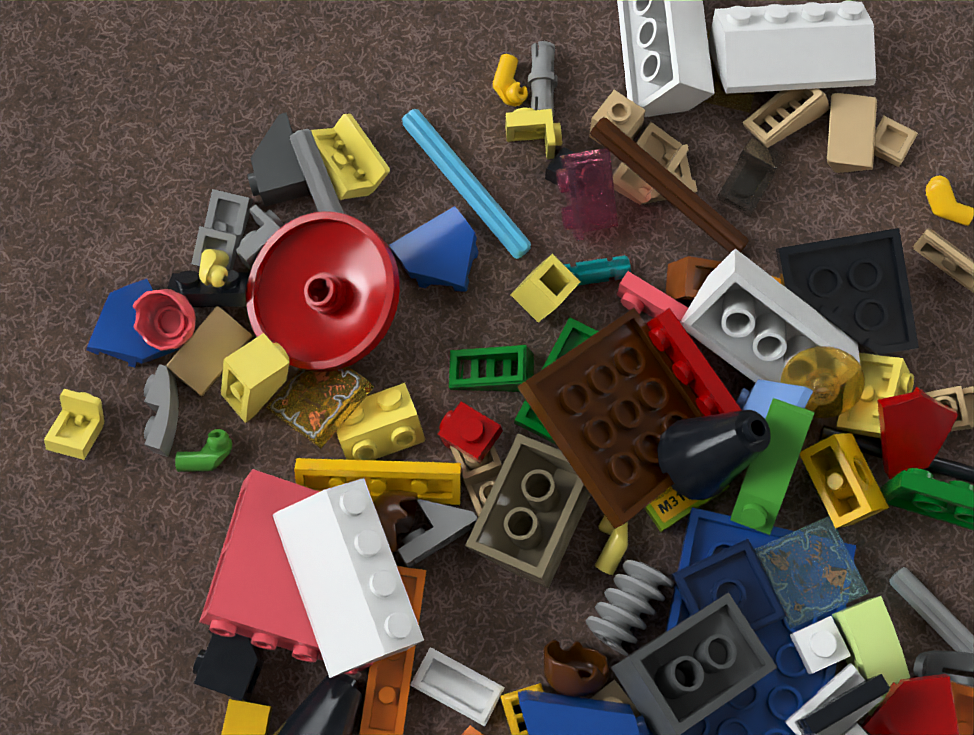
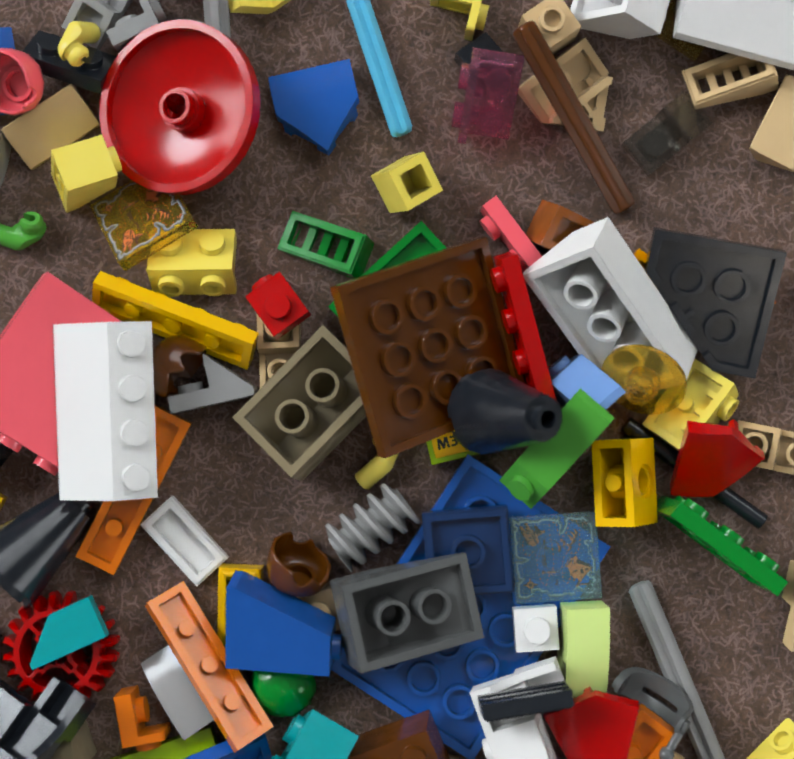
camera: 20 degrees right, 15 degrees up
(600, 269) = (469, 179): teal axle -> none

